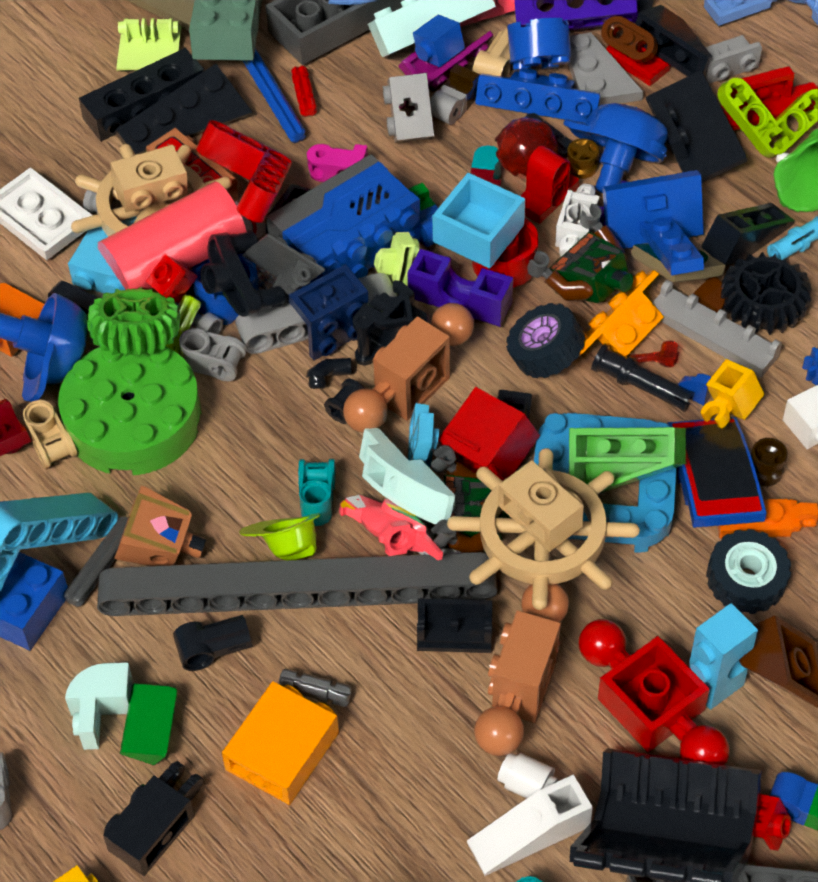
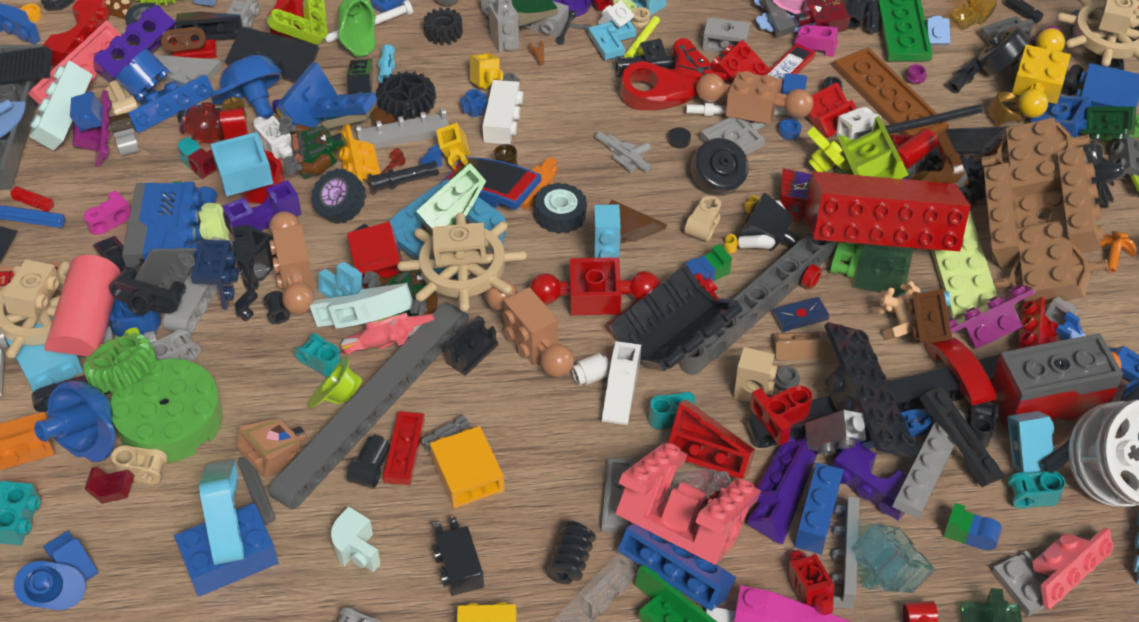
camera: 55 degrees left, 5 degrees down
(148, 722) = (394, 523): green slope -> none
(171, 278) = (111, 324): red bracket -> none
(249, 159) = (73, 244): red beam -> none
(259, 661) = (404, 448): none -> red plate
(415, 91) = (110, 144): light grey brick -> none

